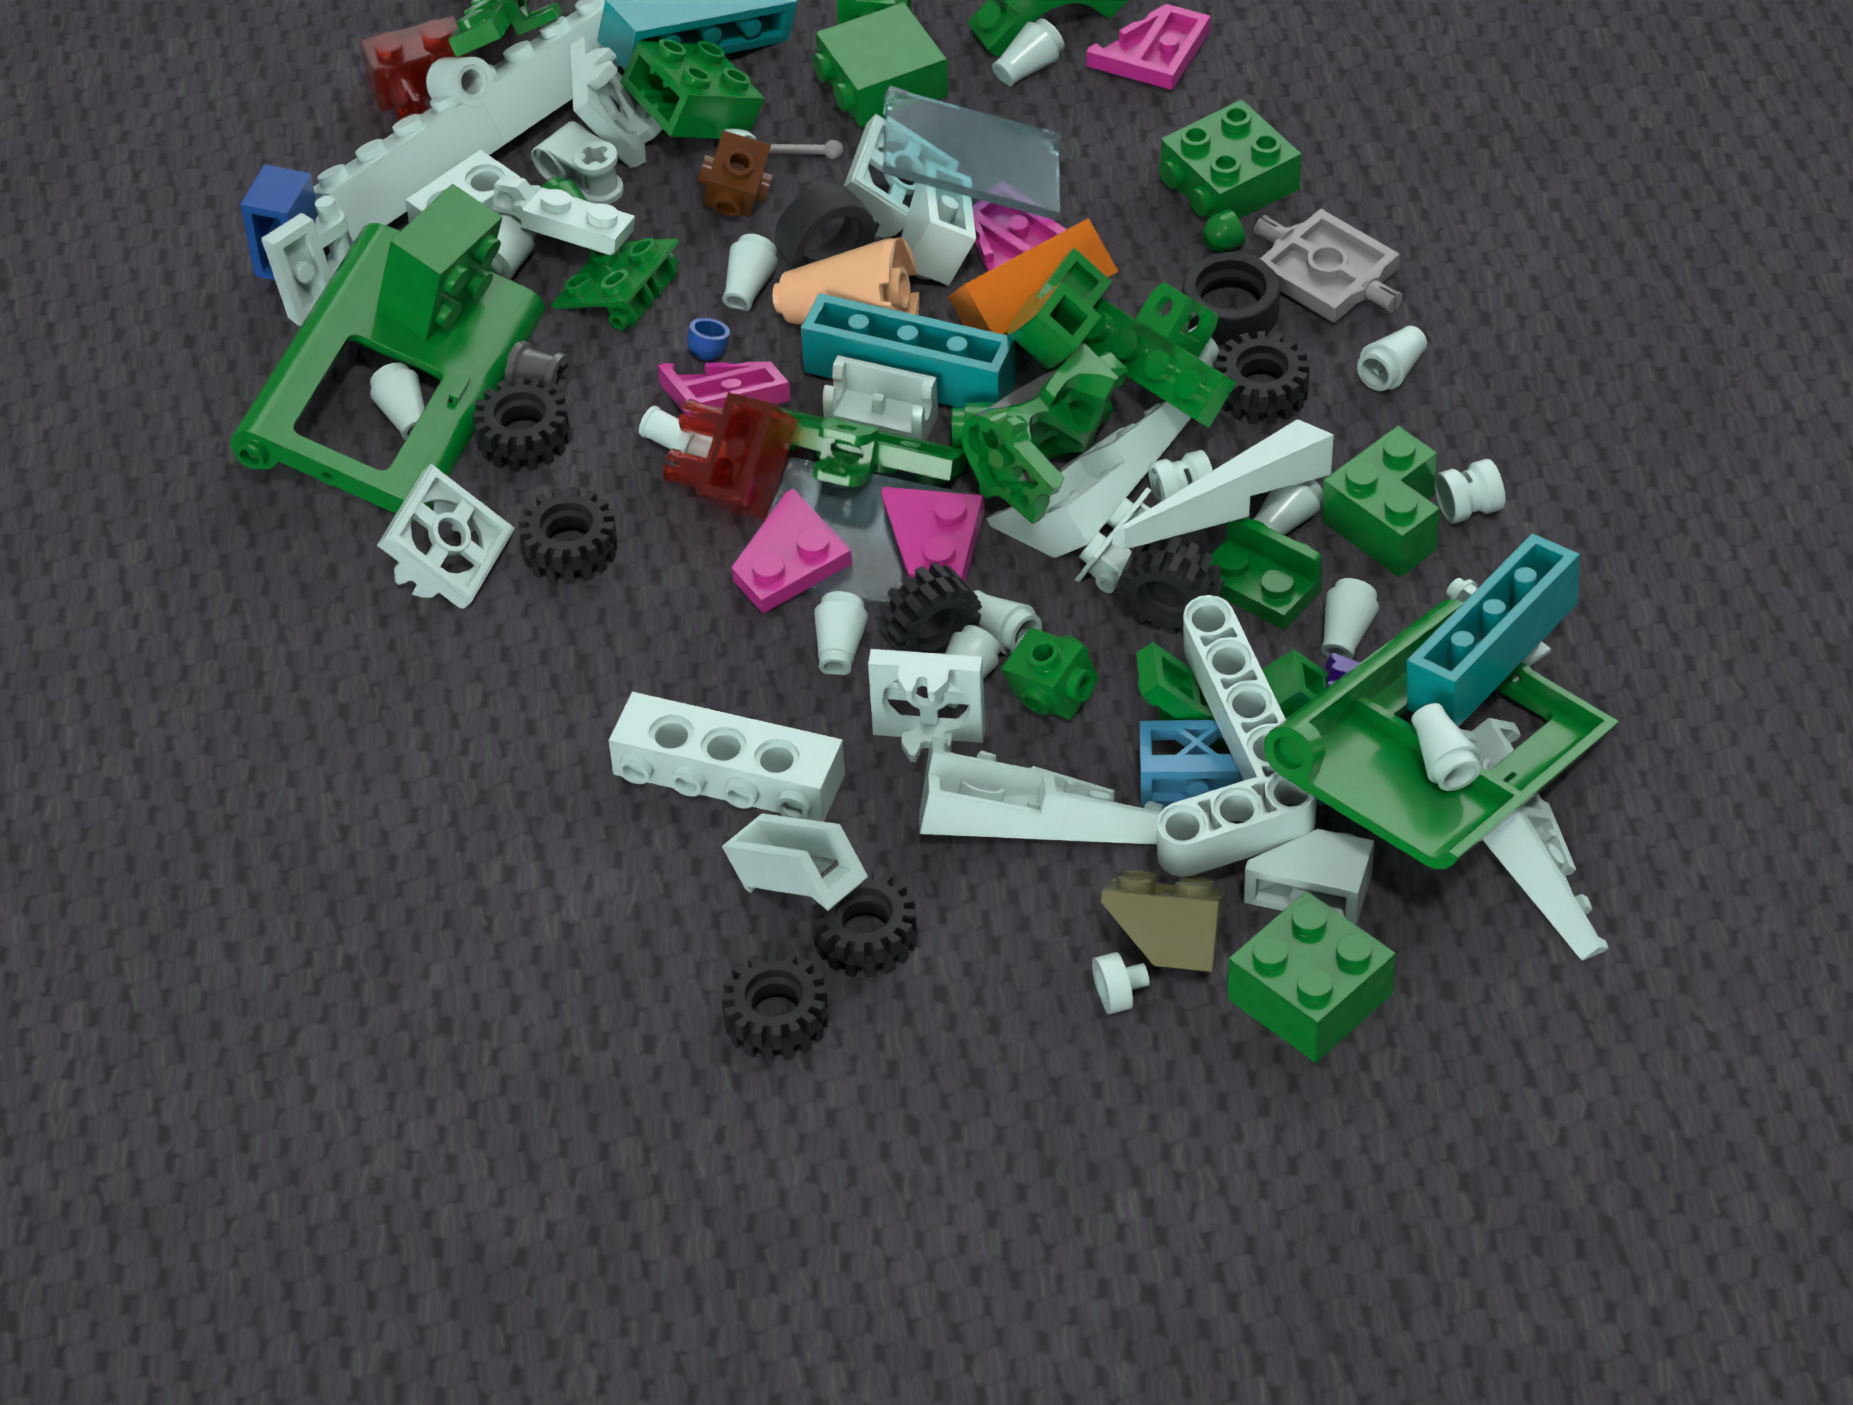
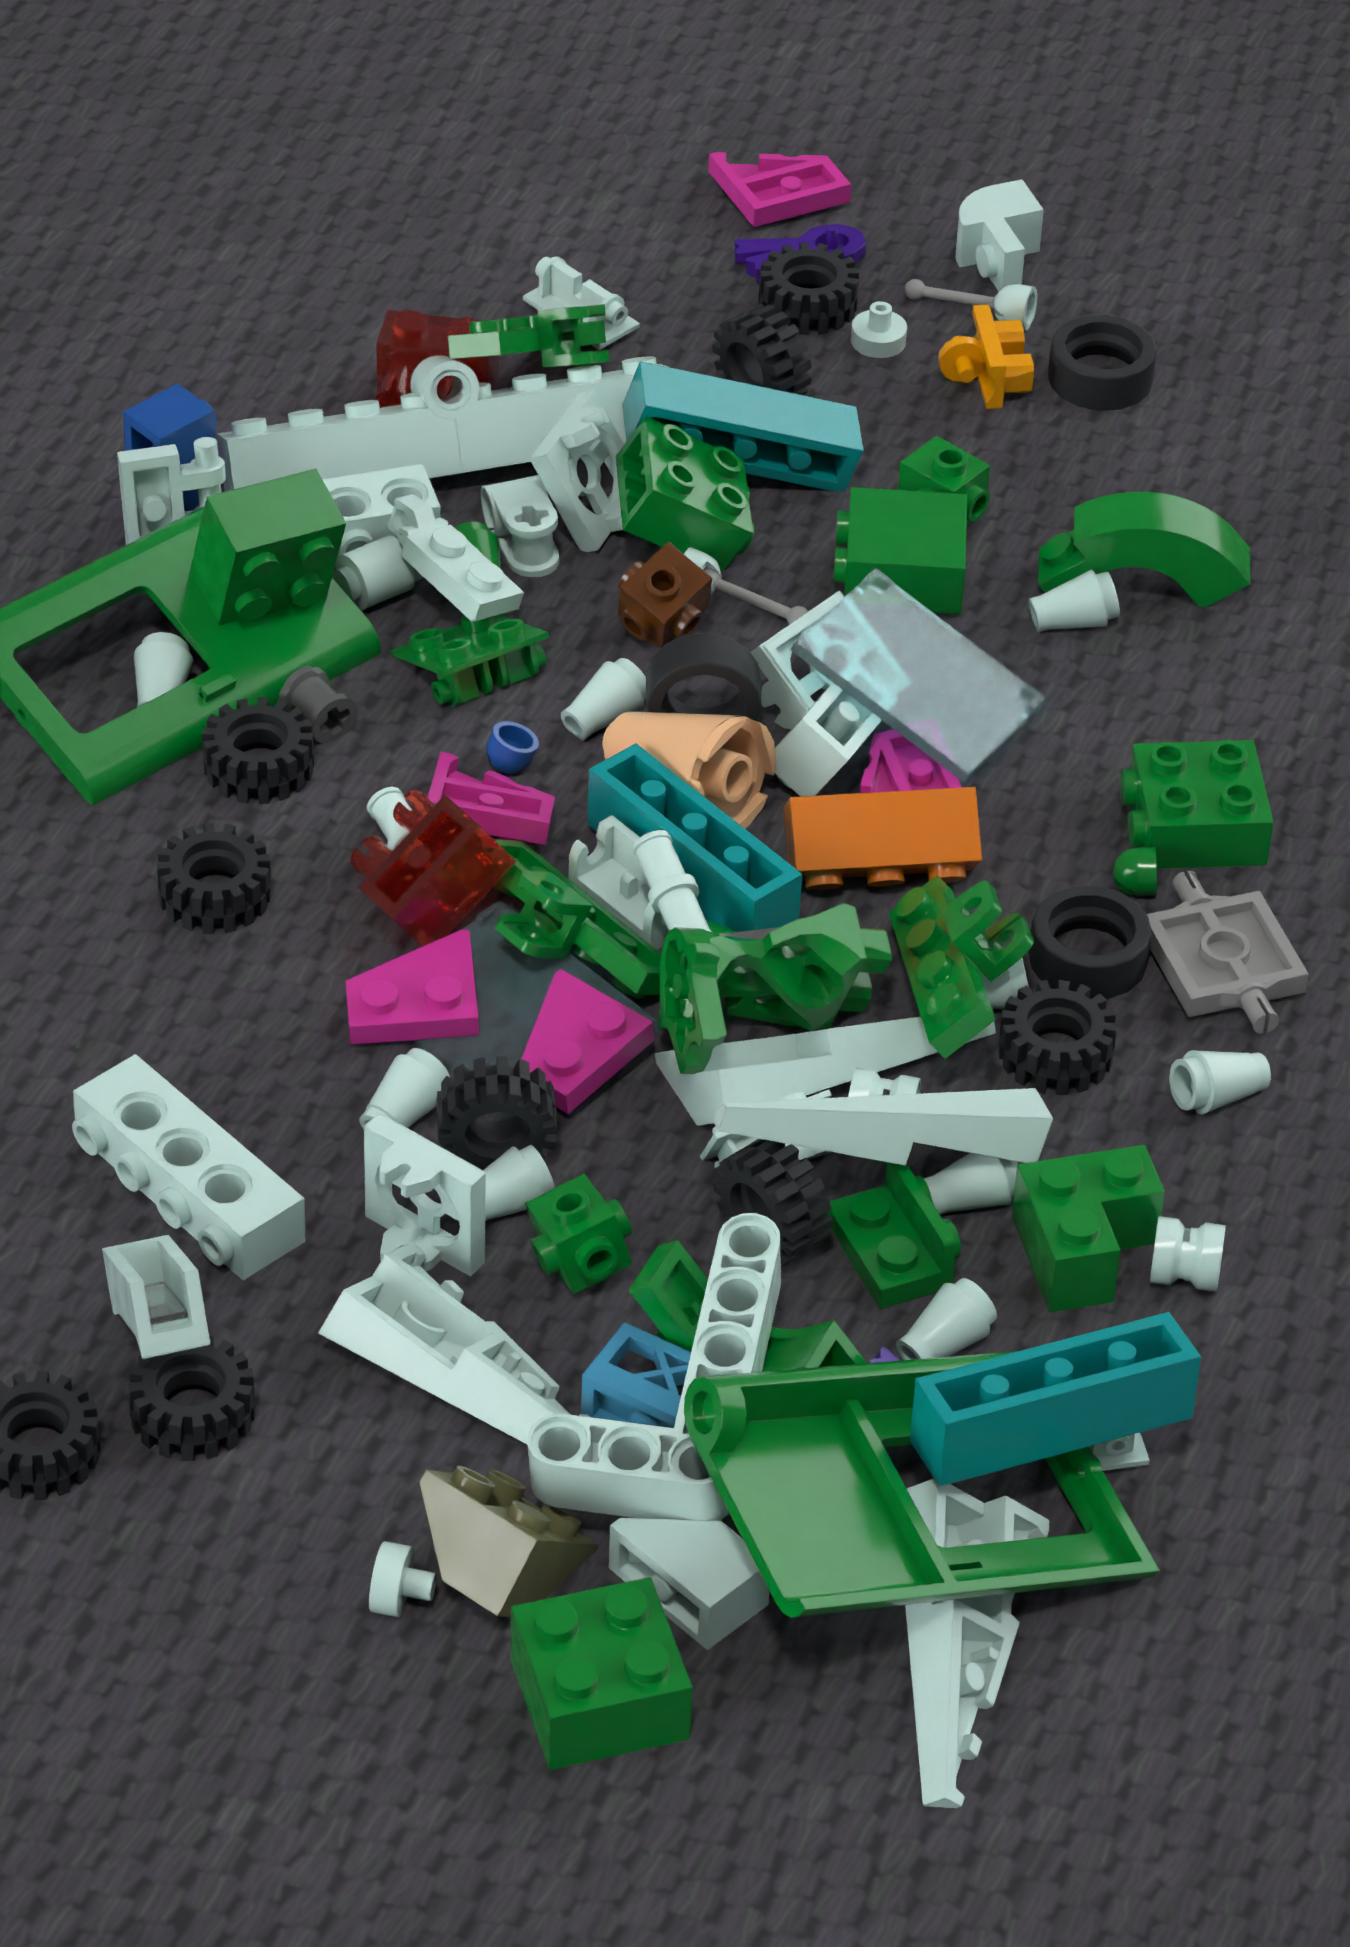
camera: 25 degrees right, 5 degrees down
(466, 514) = (120, 802): light aqua piece -> none
(931, 390) = (671, 889): none -> light aqua pin
(1006, 620) = (581, 1153): light aqua cone -> none
(1060, 311) = (871, 865): green arch -> none
(1154, 48) = (1219, 654): dark pink wing -> none
(1445, 749) = (893, 1496): light aqua cone -> none

